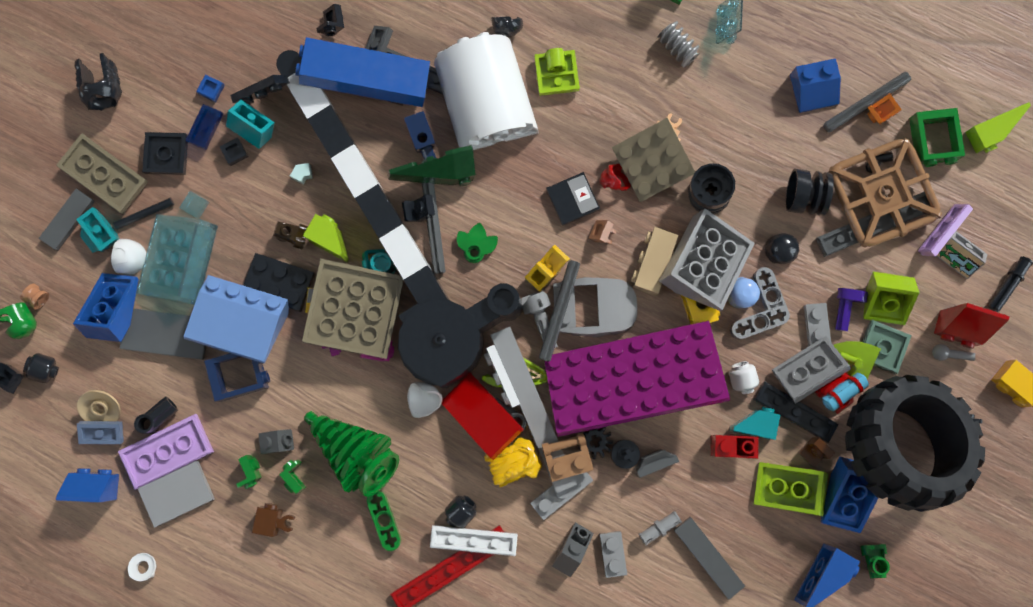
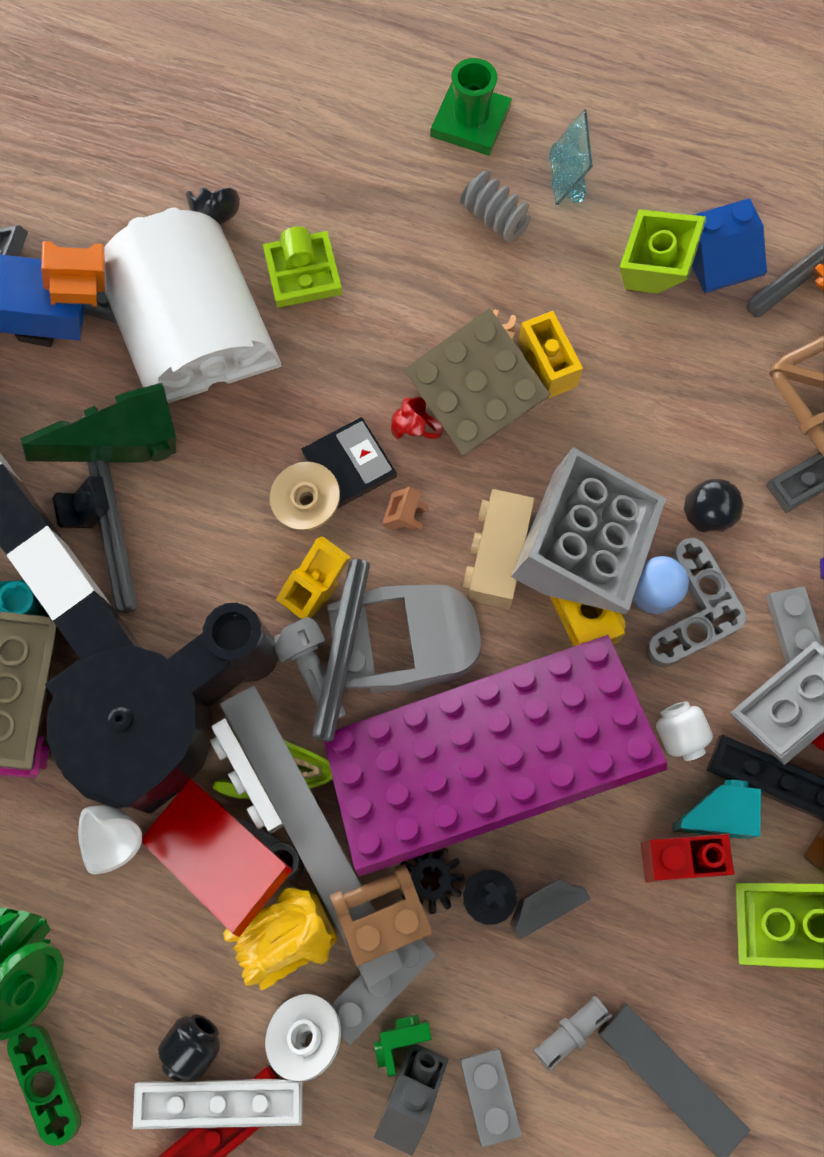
camera: 10 degrees left, 10 degrees down
(418, 128) = (76, 377): dark blue torso -> none
(424, 70) = (73, 273): none -> orange piece
(476, 240) = (188, 548): green plate -> none
(511, 511) = (288, 1035): none -> white dish
(546, 207) = (294, 485): none -> tan dish
(573, 517) = (408, 1031): none -> green bracket
(699, 145) = (550, 353): none -> yellow brick
(718, 180) = (580, 414): black wheel -> none
(775, 87) = (660, 250): none -> lime slope
(809, 192) = (744, 405): black wheel -> none

